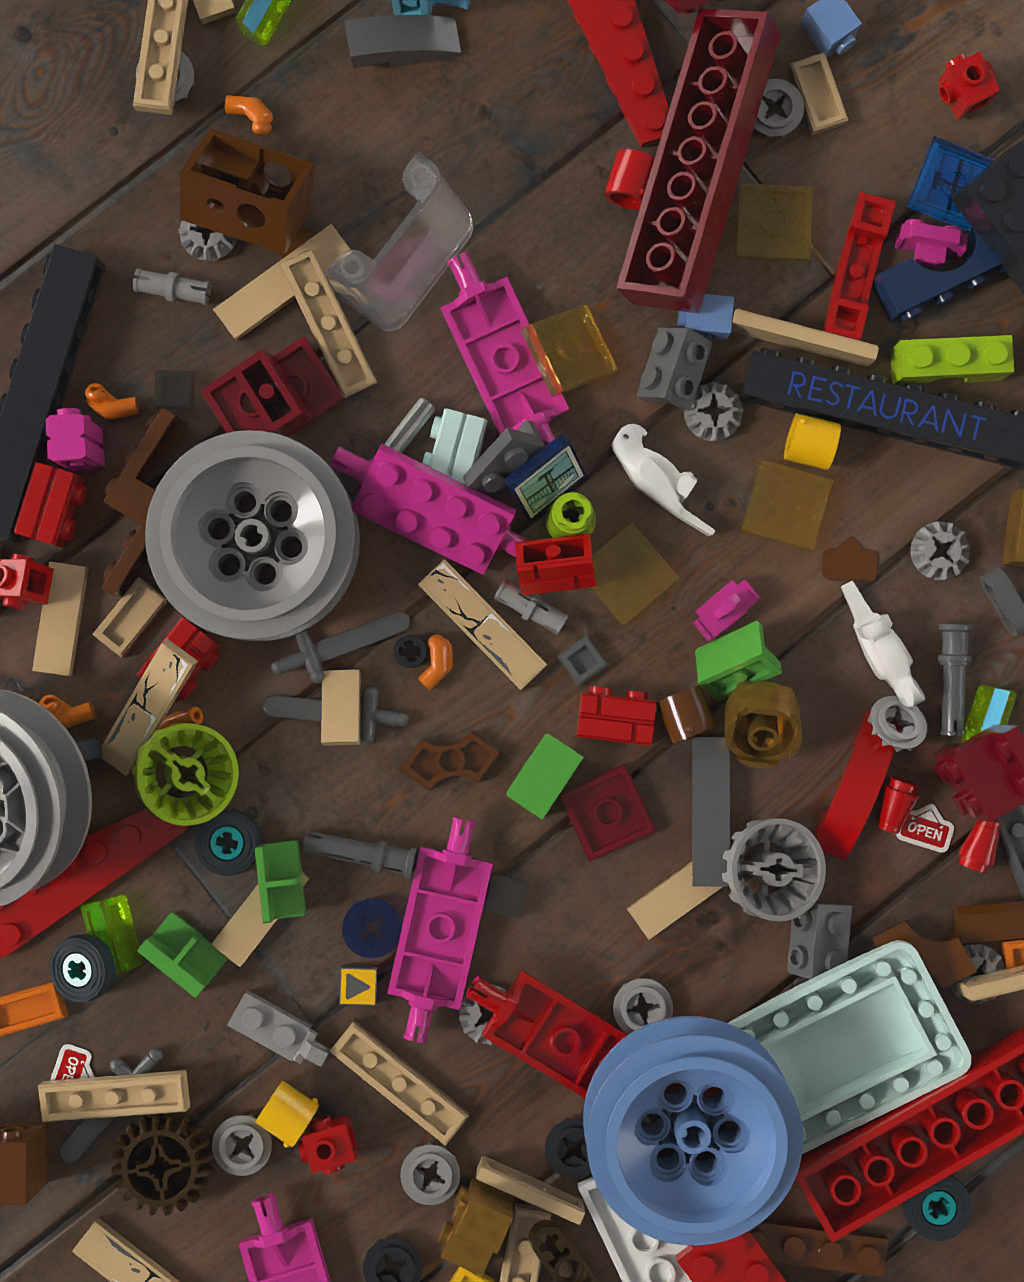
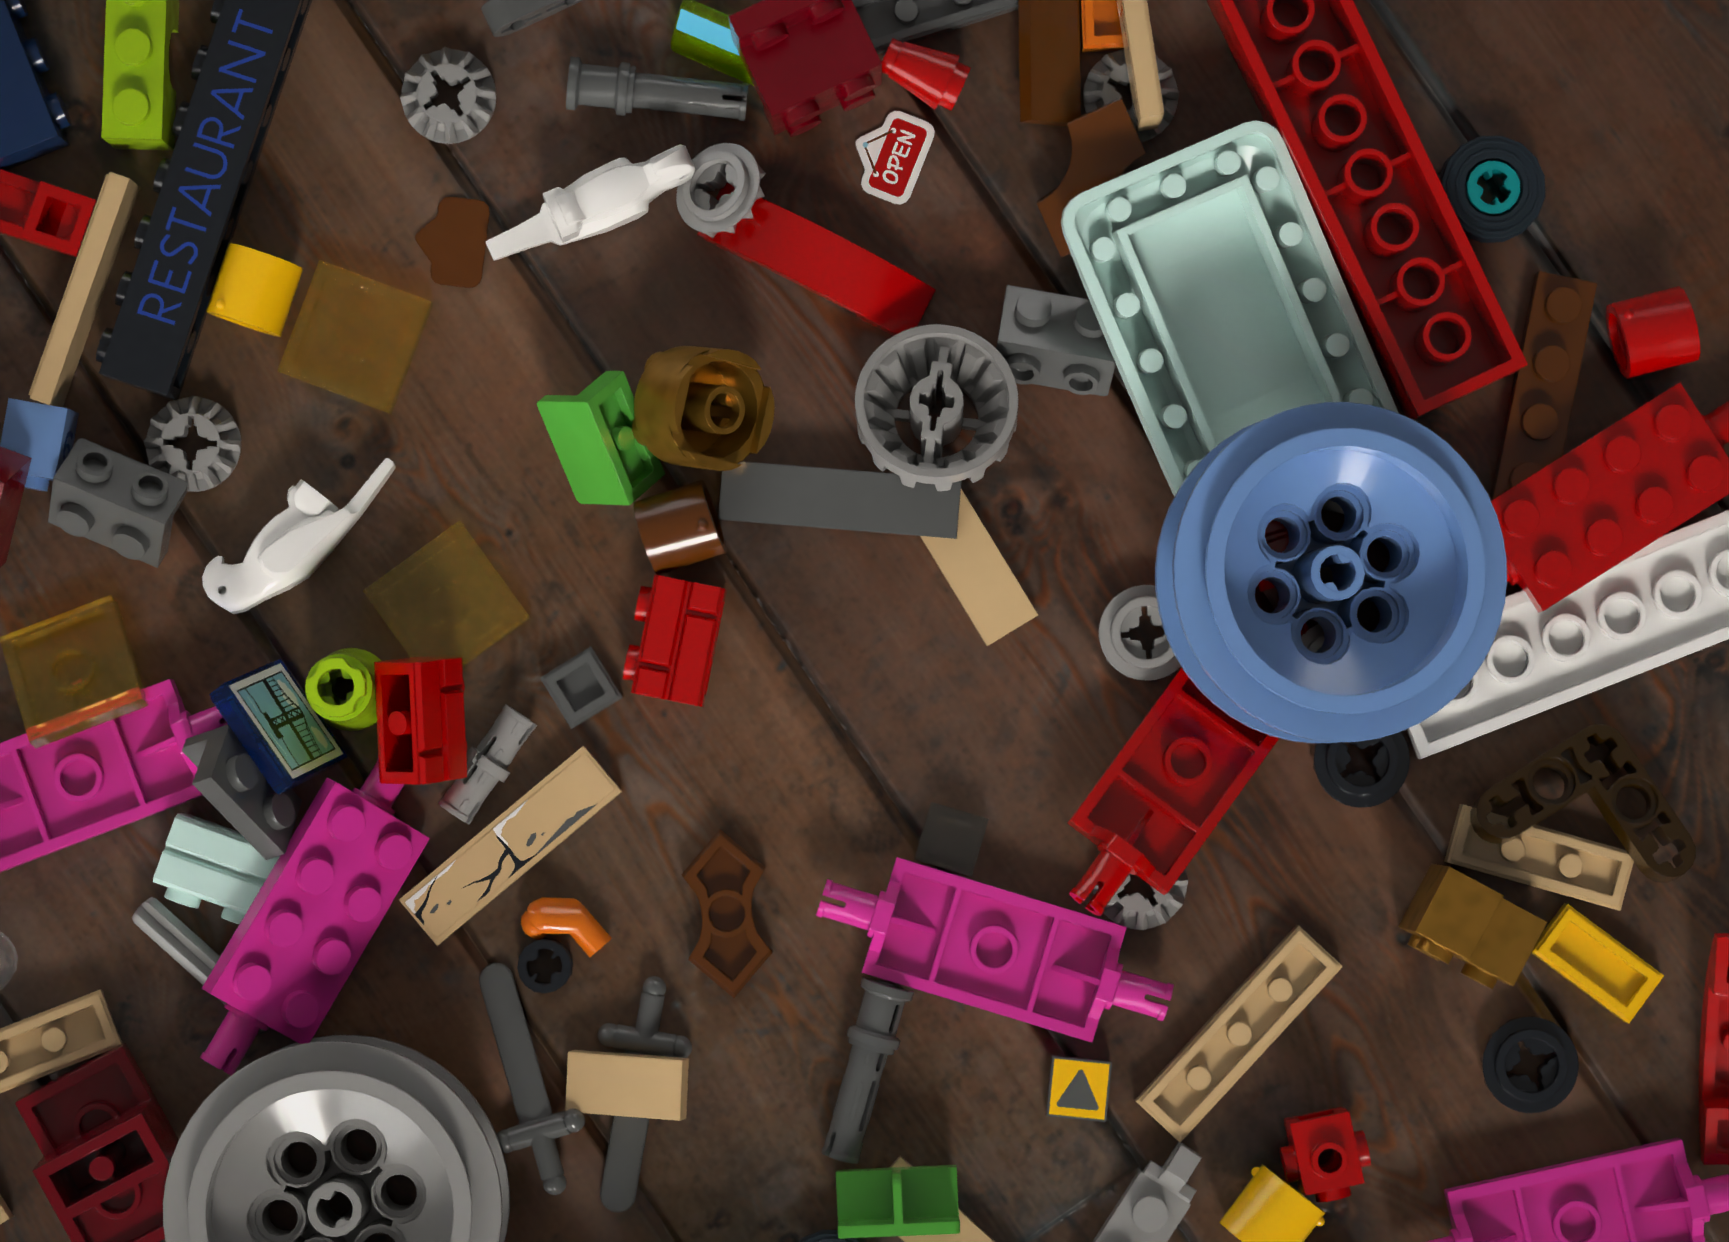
camera: 90 degrees left, 0 degrees up
(370, 945) = (981, 1088): clear blue gear -> none
(437, 1189) = (1413, 984): light grey gear -> none
(530, 1189) = (1420, 834): tan tile -> none
(544, 775) = (760, 763): bright green panel -> none
(607, 812) = (829, 666): dark red tile -> none
(725, 608) = (514, 451): dark pink piece -> none
(896, 803) = (849, 200): red cone -> none

